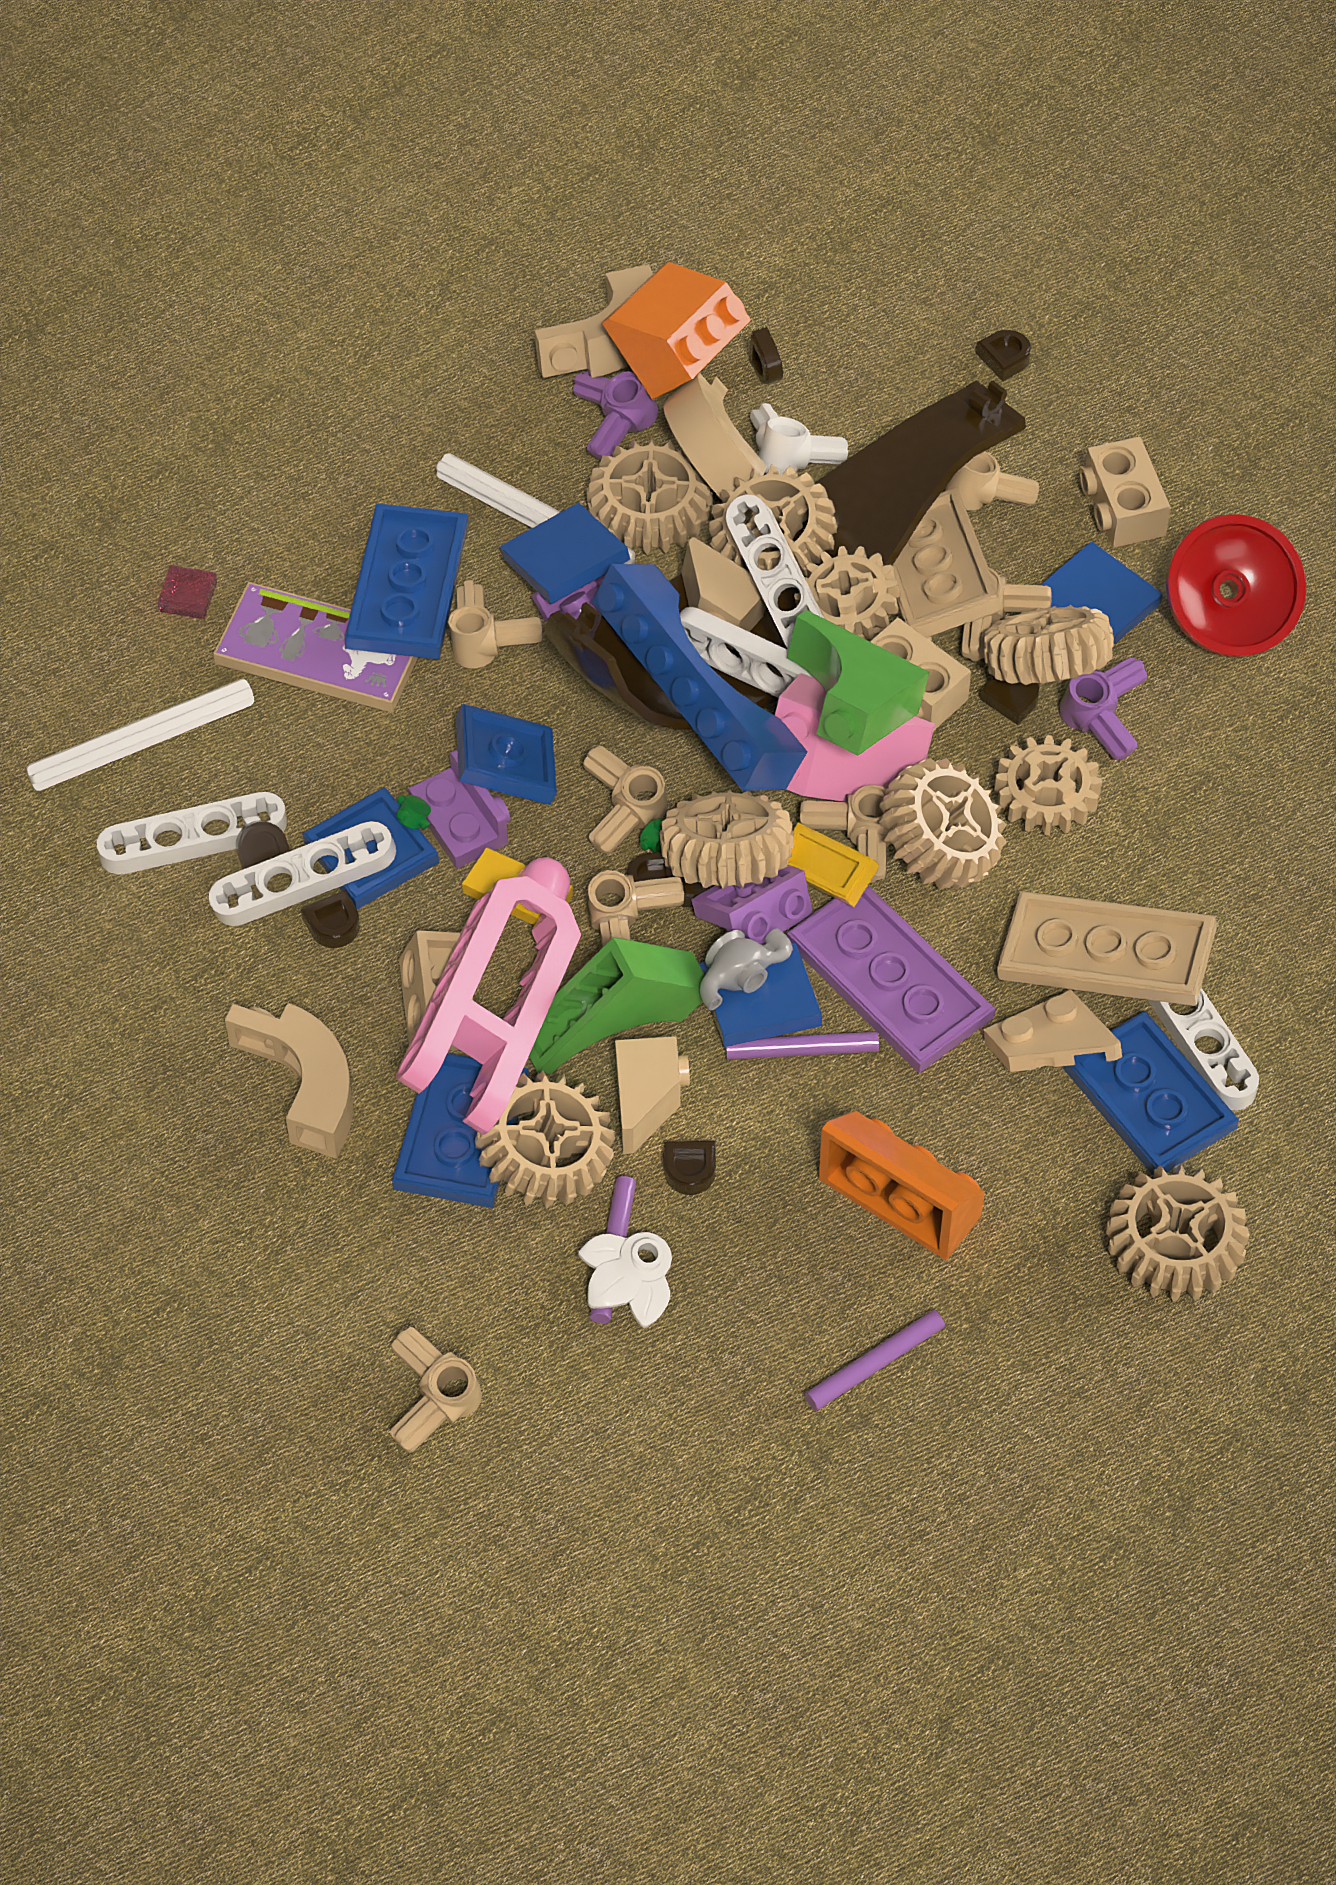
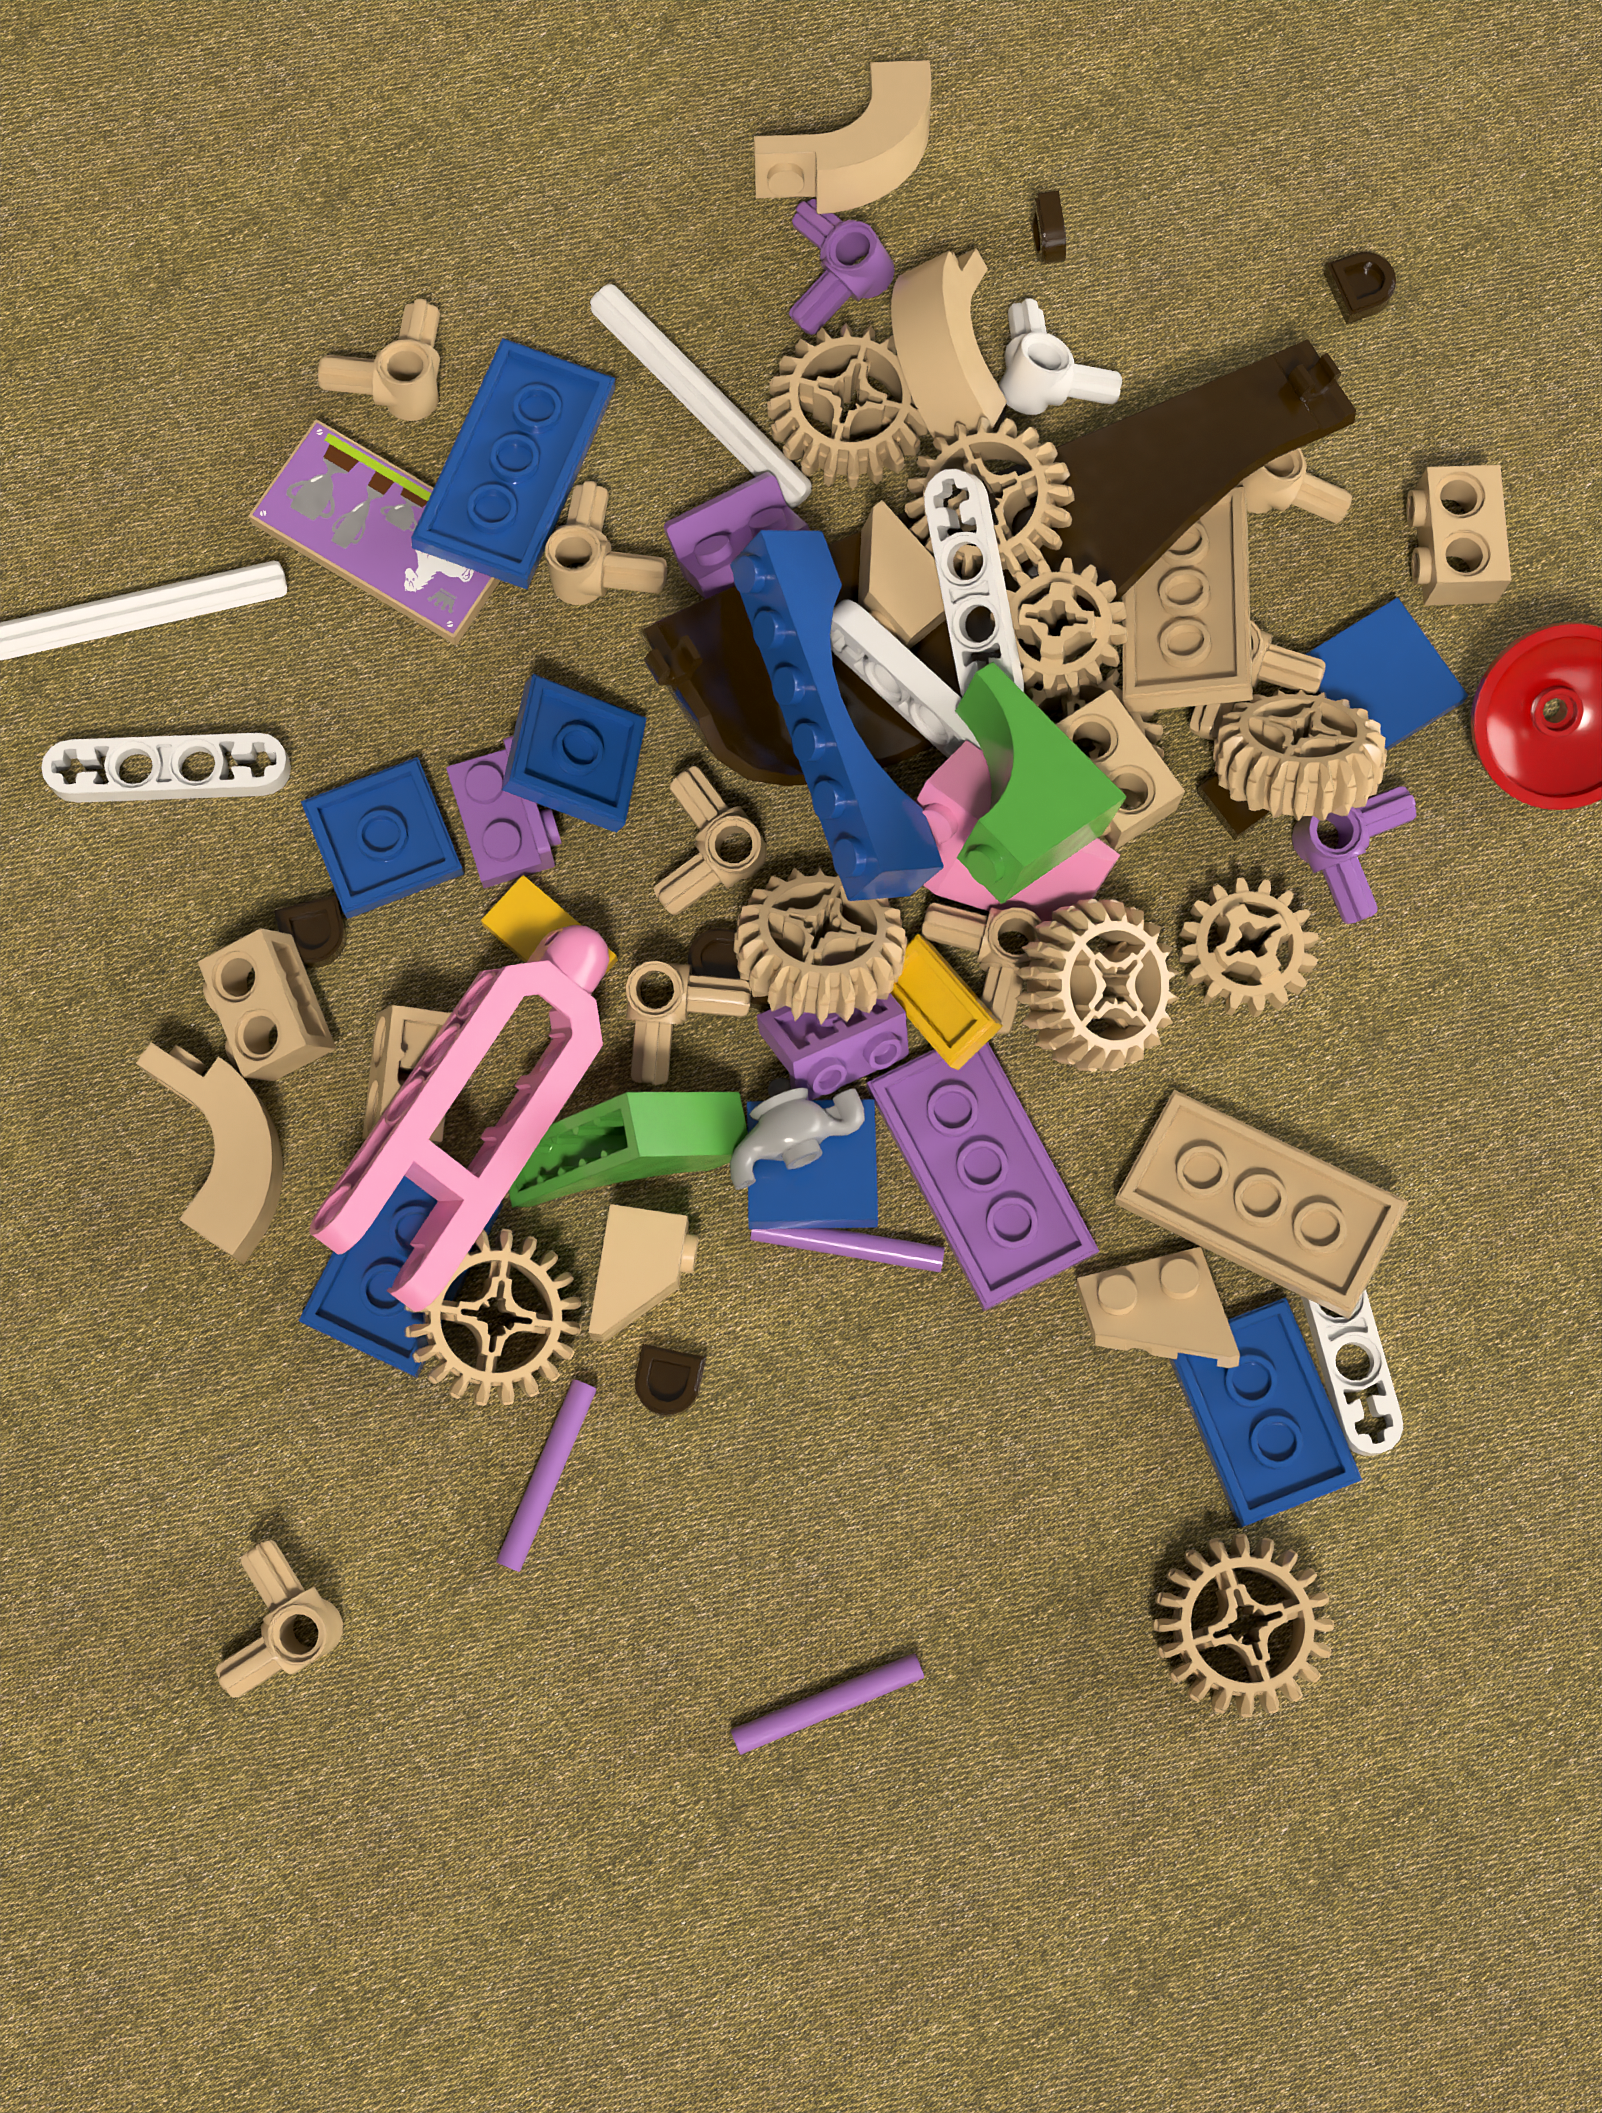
camera: 10 degrees right, 20 degrees up
(187, 592) = (239, 413): clear pink tile -> none
(259, 843) = (246, 812): dark brown tile -> none
(305, 881) = (284, 856): white beam -> none
(307, 540) = (387, 374): none -> tan axle
(318, 963) = (278, 998): none -> tan brick
(413, 812) = (442, 807): green piece -> none
(564, 553) = (717, 476): blue tile -> none
(627, 1279) = (545, 1527): white plate -> none
(651, 836) = (731, 904): green piece -> none
(675, 326) = (936, 170): orange slope -> none
(899, 1182) = (920, 1475): orange slope -> none

